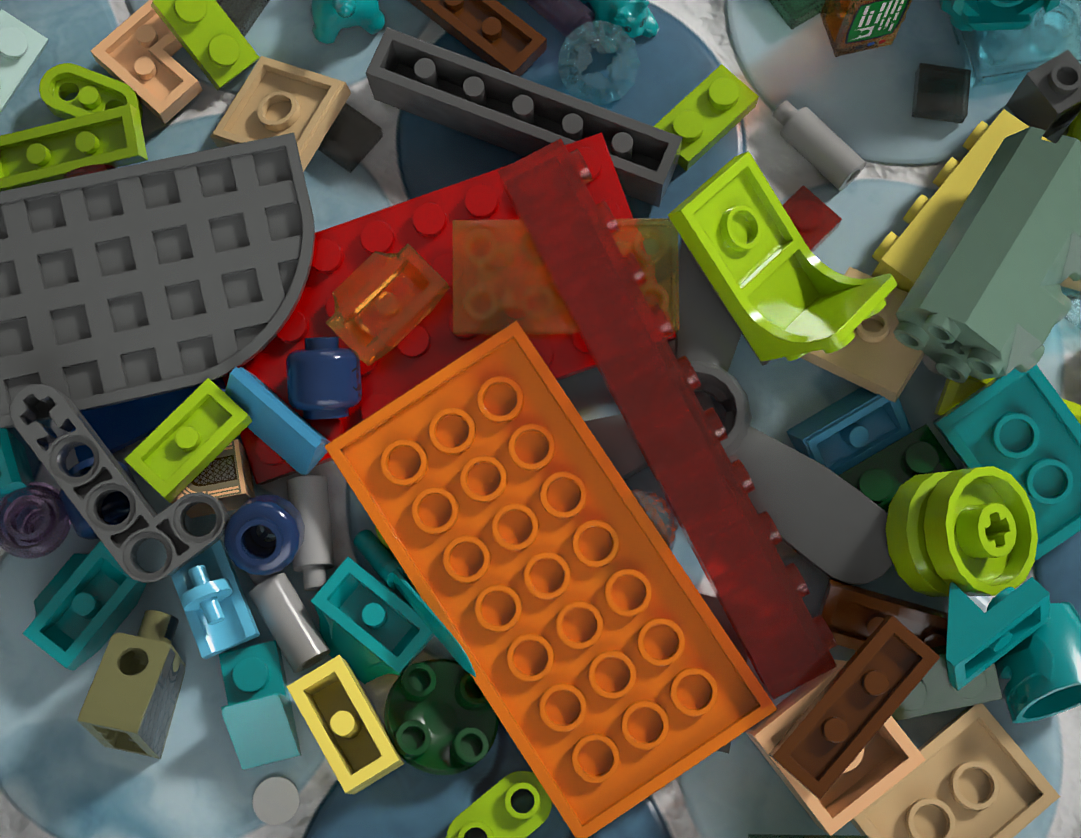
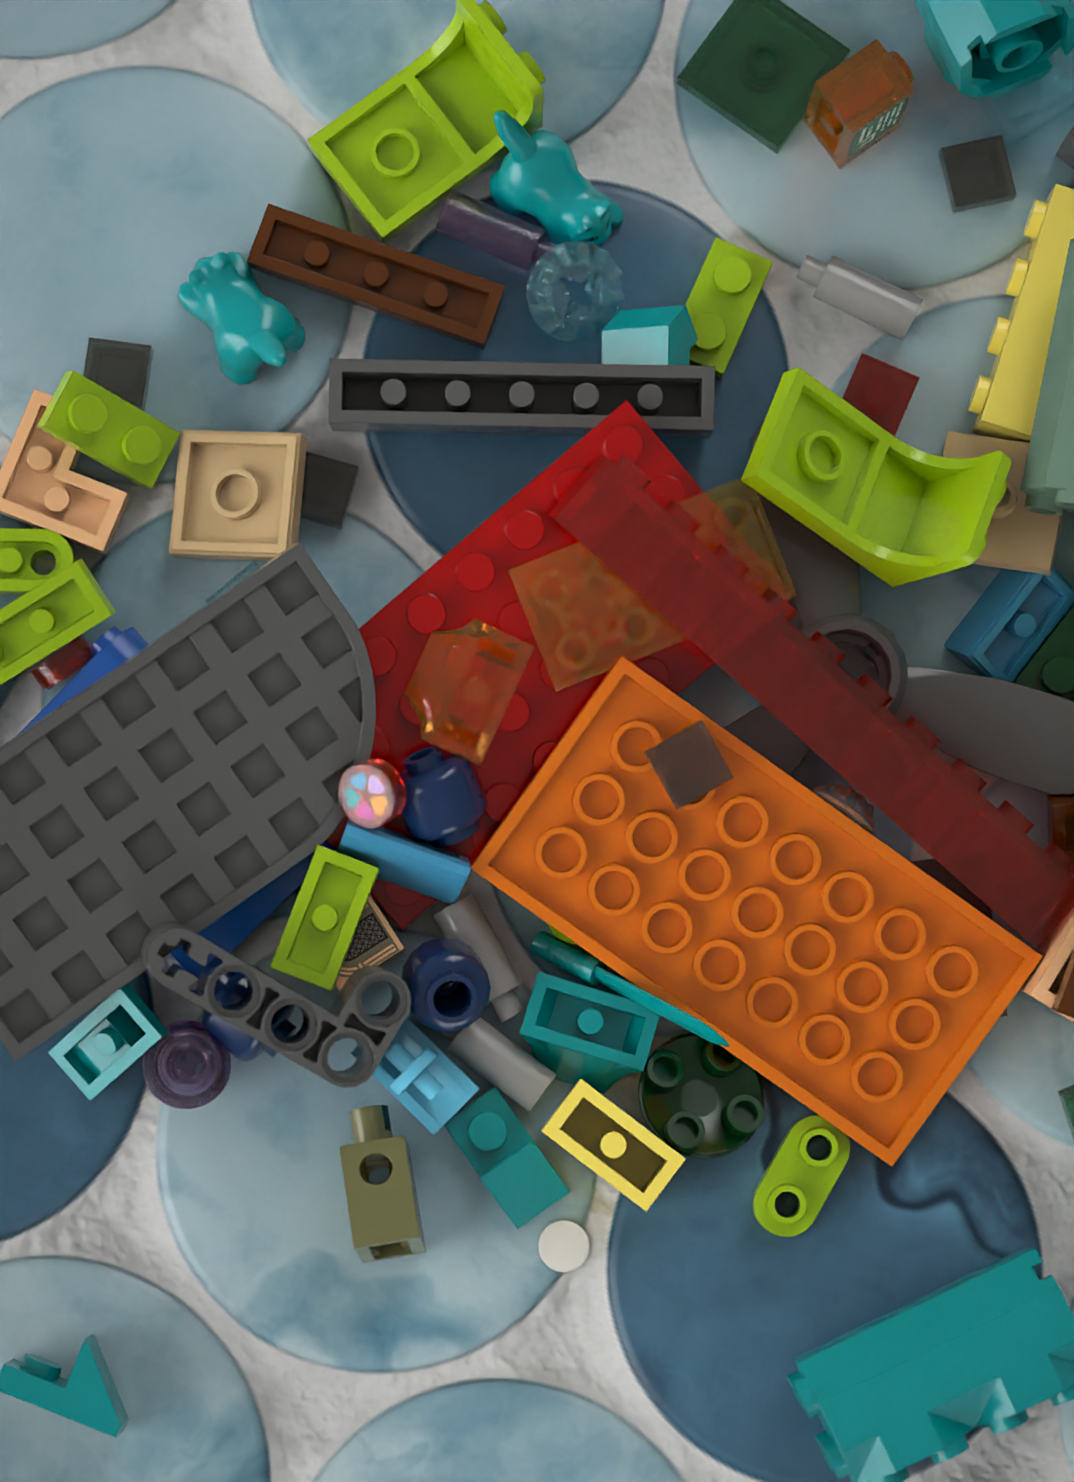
camera: 25 degrees left, 10 degrees up
(83, 607) = (274, 1127): teal slope -> none
(266, 349) = (372, 793): none -> clear red tile
(535, 426) = (688, 764): none -> clear smoke tile
(649, 107) = (649, 337): none -> teal piece

